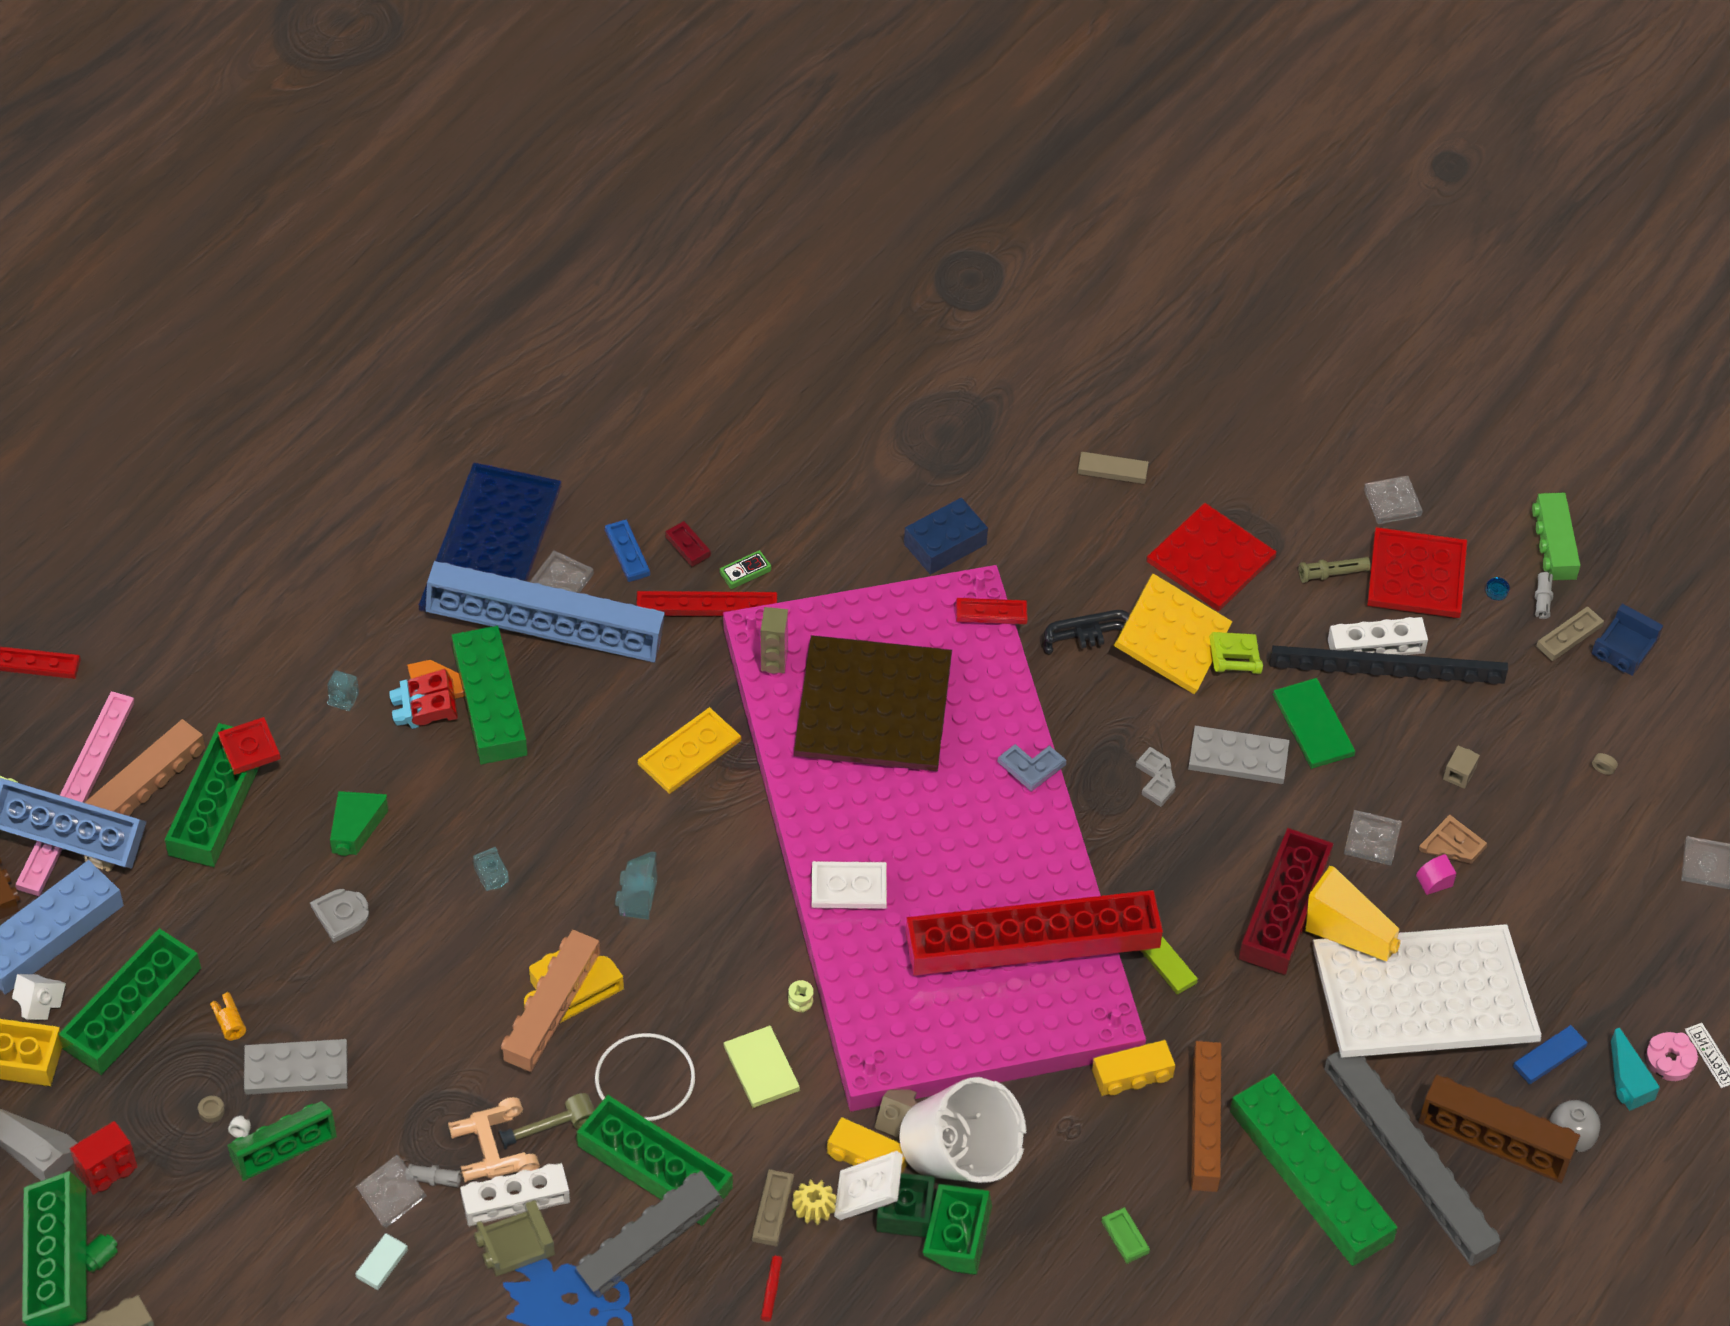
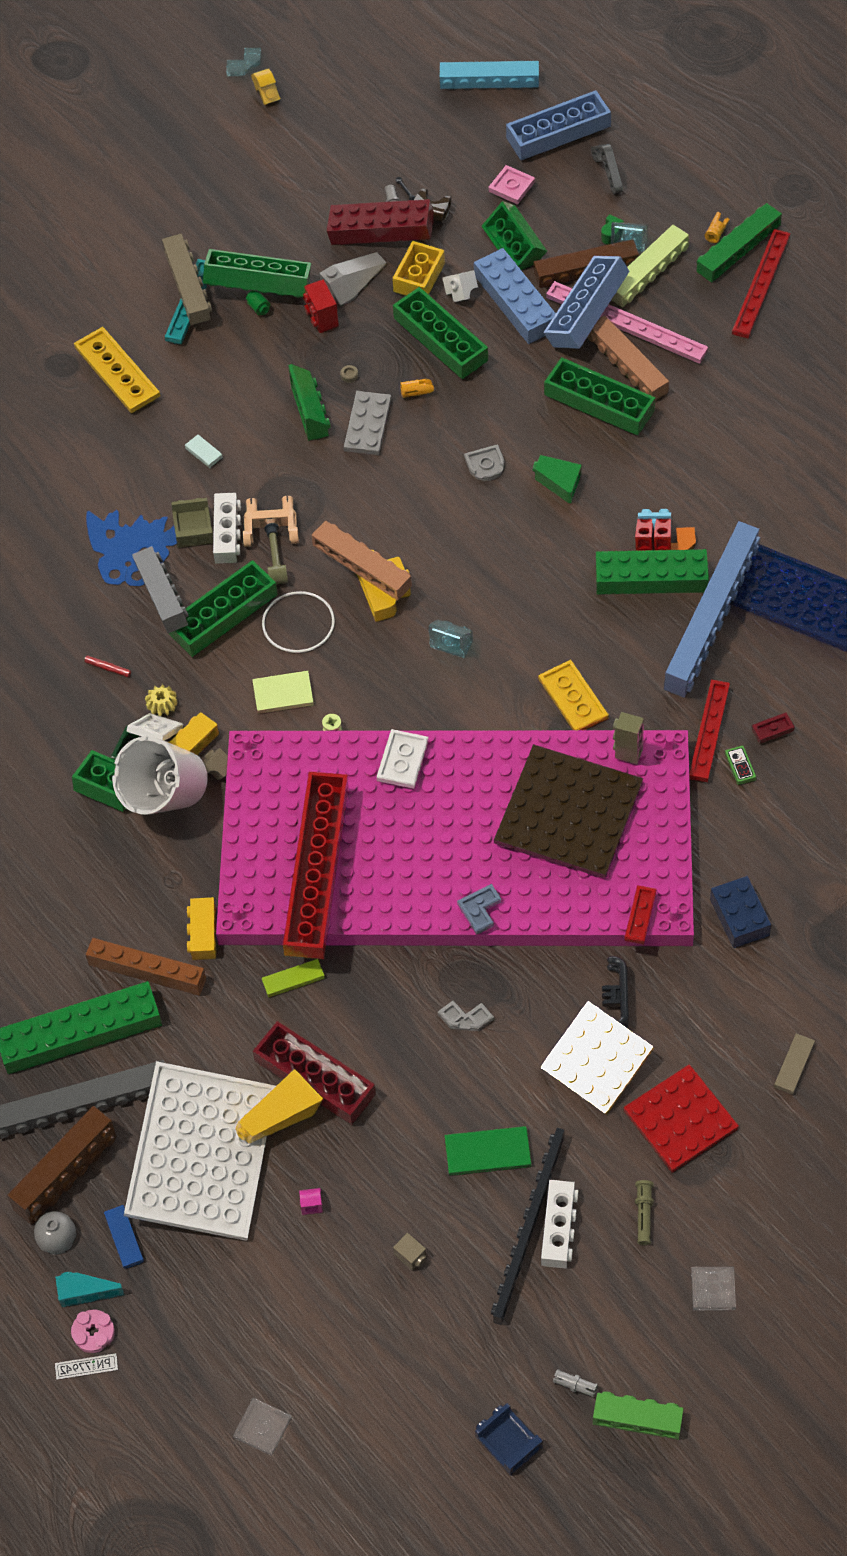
camera: 110 degrees right, 5 degrees up
(239, 1127) = (328, 385): white hinge -> none
(249, 745) = (625, 408): red plate -> none
(342, 690) = (677, 482): clear light blue brick -> none
(391, 1191) = (251, 459): clear plate -> none
(435, 1176) = (257, 485): light grey pin -> none
(490, 869) = (494, 552): clear light blue brick -> none
(563, 573) = (756, 637): clear plate -> none
(627, 550) = (777, 688): blue tile -> none
(773, 1207) = (162, 675): dark tan tile -> none
(1125, 1235) = (72, 893): bright green tile -> none
(1235, 646) = (575, 1104): lime plate -> none
(1239, 754) = (470, 1084): light grey plate -> none
(1372, 837) = (360, 1161): clear plate -> none
(1417, 572) = (624, 1281): red plate -> none
(1454, 841) = (339, 1224): medium nougat wing -> none
(1497, 588) = (594, 1348): tile -> none
(1570, 633) = (528, 1392): dark tan plate -> none
(1604, 764) = (382, 1373): dark tan tile -> none

